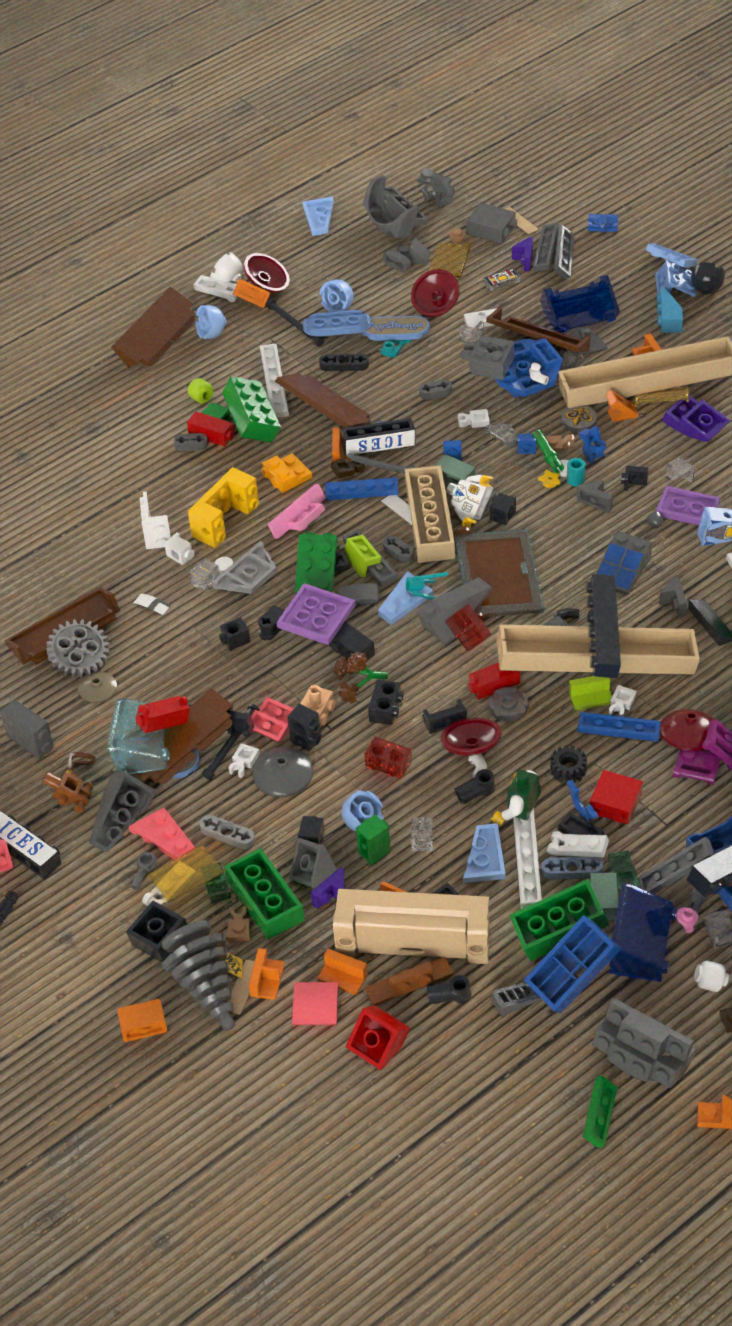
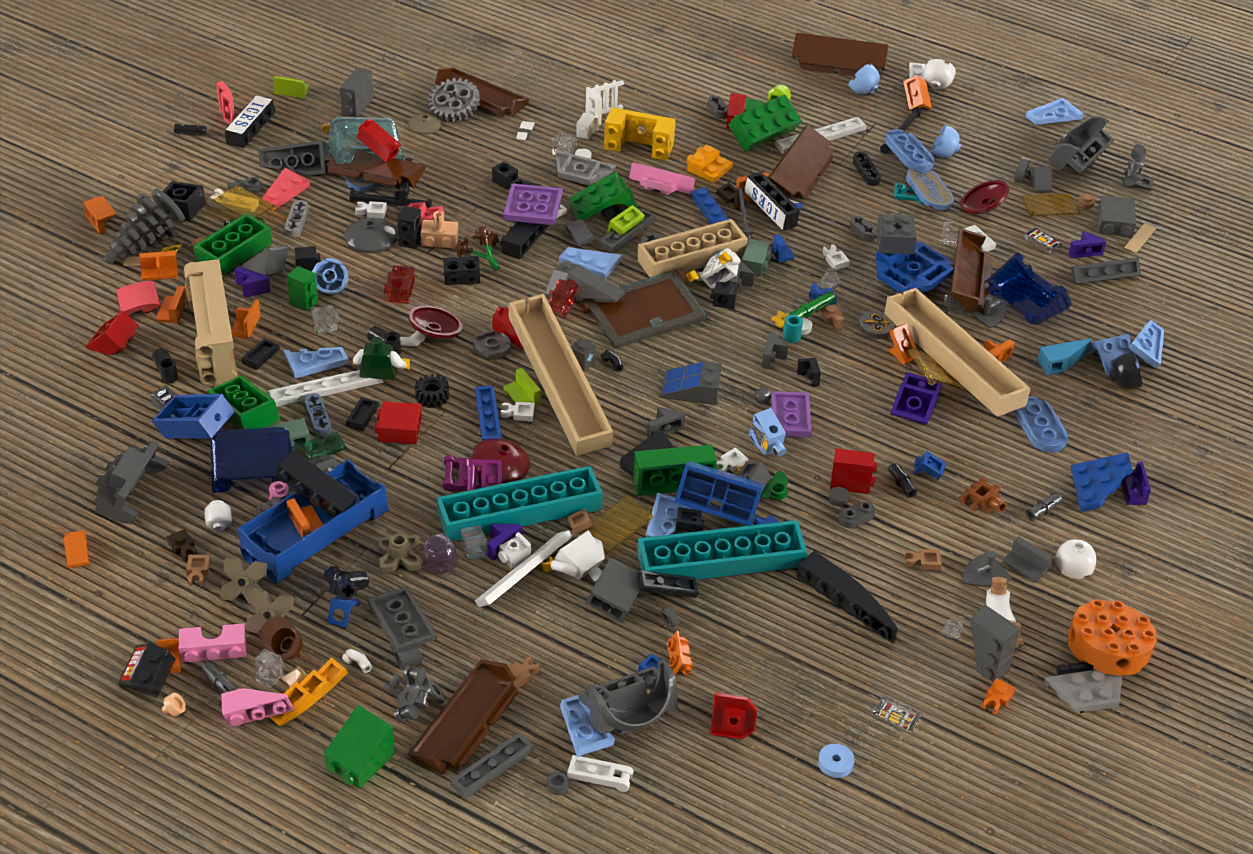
camera: 65 degrees right, 5 degrees down
(69, 790) = (307, 127): dark orange piece -> none
(266, 272) = (951, 89): dark red dish -> none
(409, 981) = (171, 343): dark orange bracket -> none
(416, 584) = (598, 256): teal plant -> none
(440, 720) = (459, 308): black hinge -> none
(536, 375) = (900, 273): white arm -> none
(546, 247) = (1098, 257): dark grey plate -> none
(577, 845) = (339, 410): white plate -> none
(586, 812) = (373, 407): blue helmet -> none
(592, 451) = (834, 339): blue hips -> none
(595, 219) = (1172, 284): blue hips -> none
(600, 1111) = (63, 471): green plate -> none
(604, 626) = (573, 359): black brick -> none
(680, 468) = (837, 397): clear panel -> none

